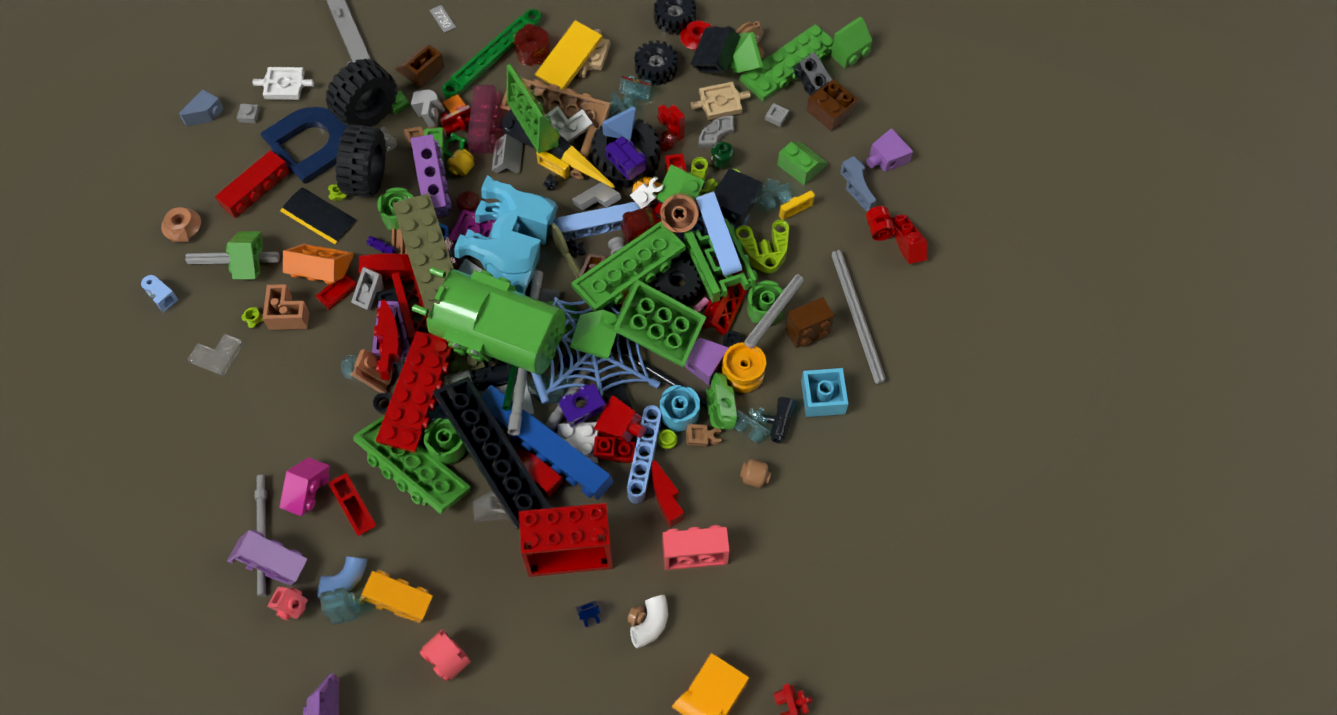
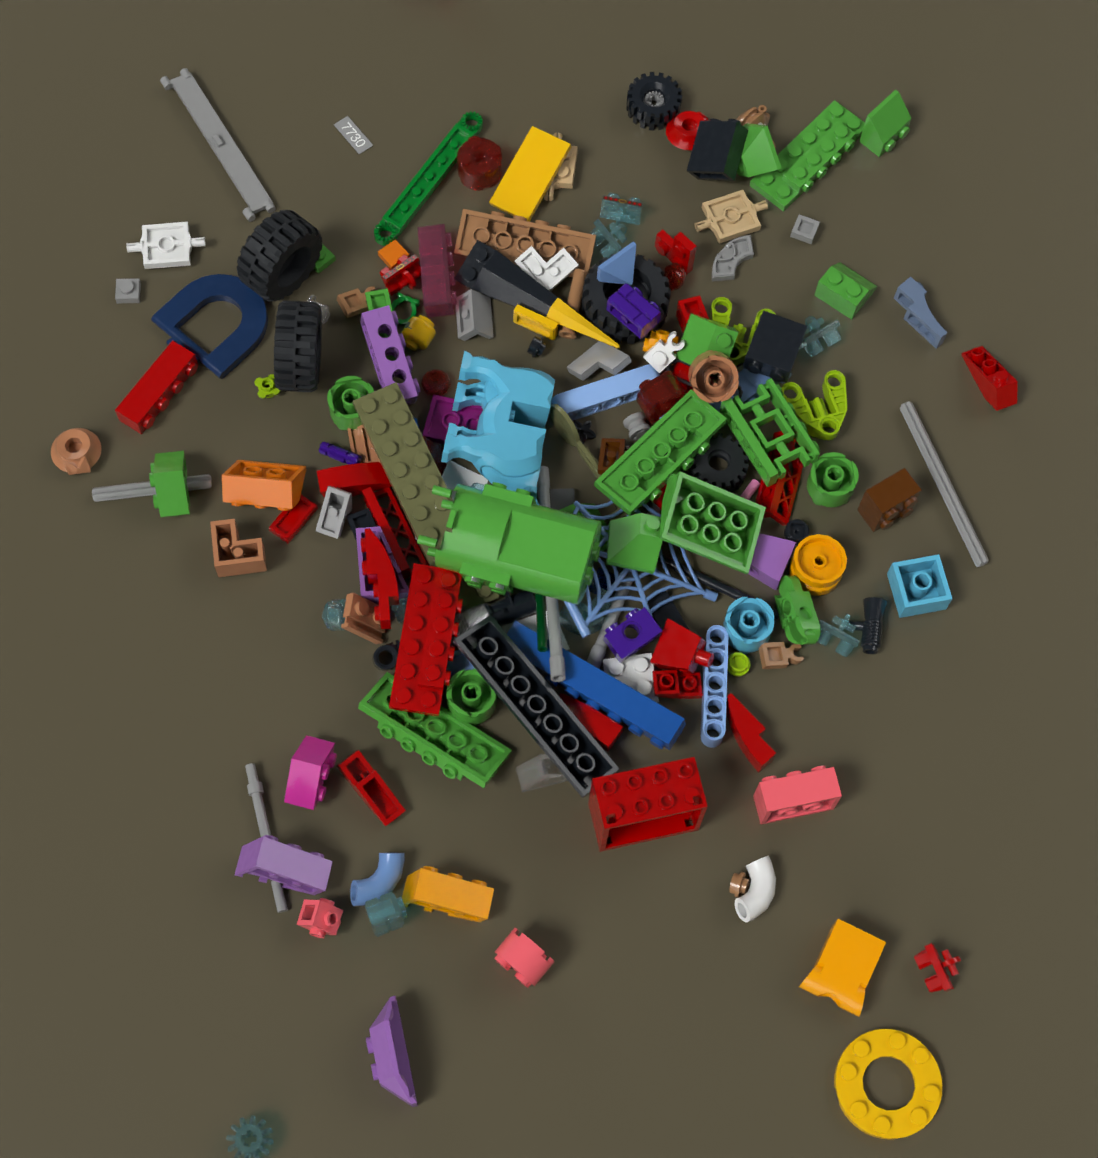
camera: 10 degrees left, 5 degrees up
(163, 295) = (73, 544): light blue leg -> none
(201, 109) = (68, 291): sand blue slope -> none
(218, 359) = (160, 623): clear plate -> none
(252, 312) = (195, 556): lime plate -> none
(317, 215) = (247, 419): black sticker -> none
(422, 65) = (341, 203): reddish brown slope -> none
(427, 106) = (361, 257): light grey brick -> none
(530, 113) = (501, 262): bright green slope -> none
(588, 610) = (681, 884): clear blue tile -> none
(656, 53) = (645, 160): black bush -> none
(719, 234) = (766, 399): light blue beam -> none
(722, 154) = (746, 290): dark green head -> none
(755, 473) = (851, 695): medium nougat head -> none
(774, 311) = (847, 491): light grey axle -> none
(796, 205) = (848, 347): yellow plate -> none
(815, 71) = (846, 168): black brick -> none
(831, 105) = (872, 210): reddish brown slope -> none
(880, 223) = (954, 361): red wheel -> none
(889, 152) = (952, 266): medium lavender torso -> none

